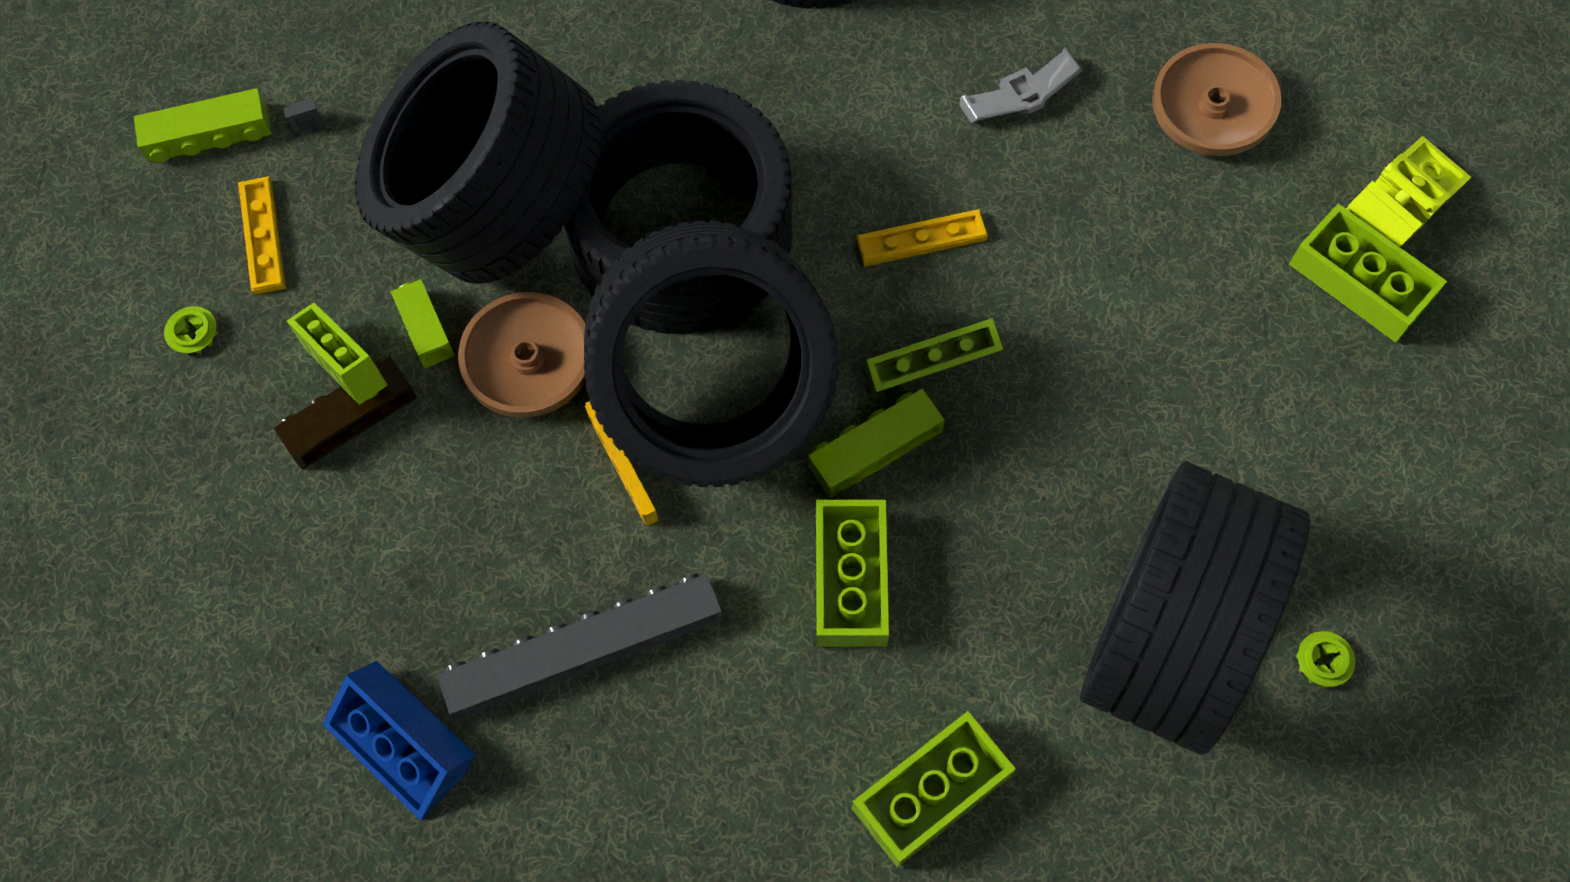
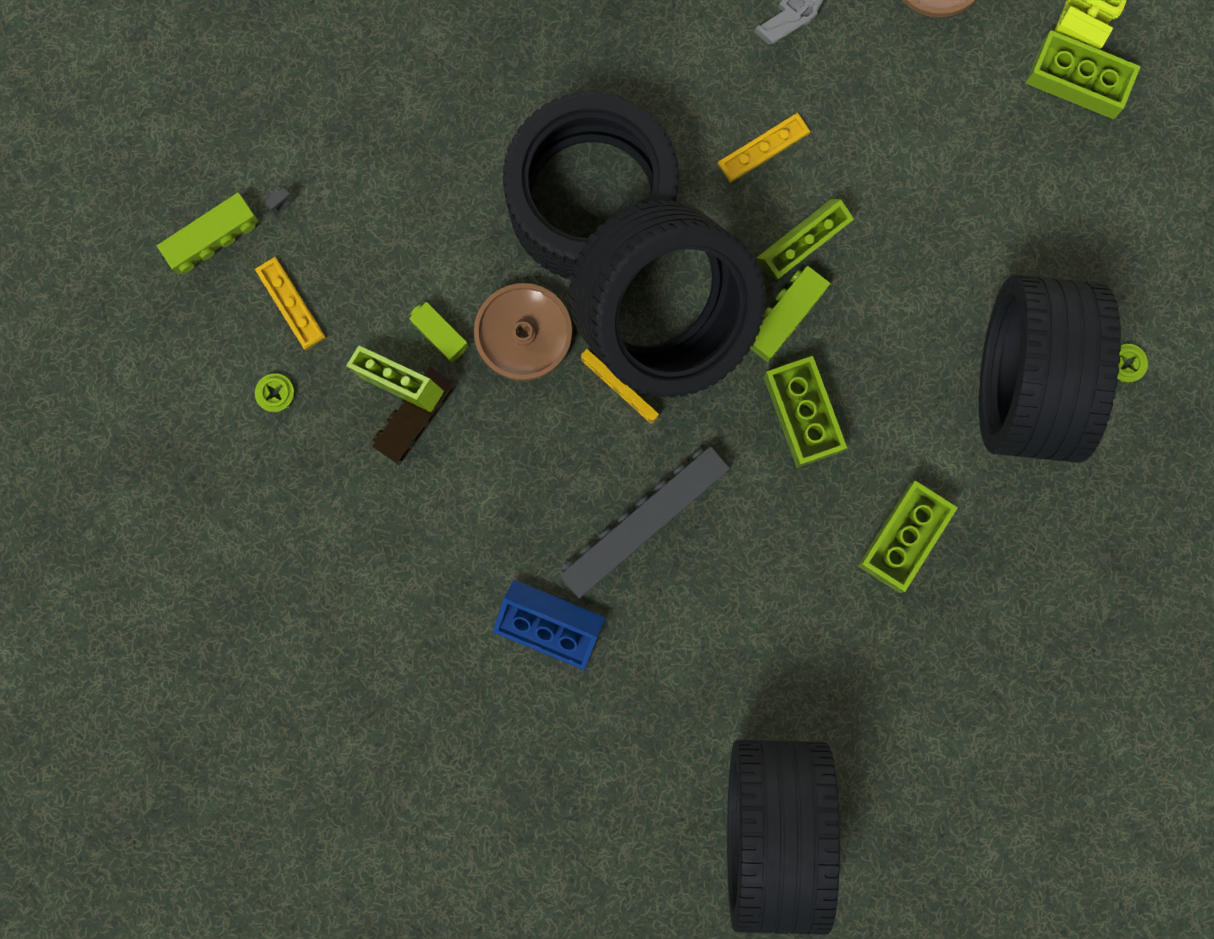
camera: 20 degrees left, 15 degrees up
(478, 154) = (392, 190): black tyre -> none

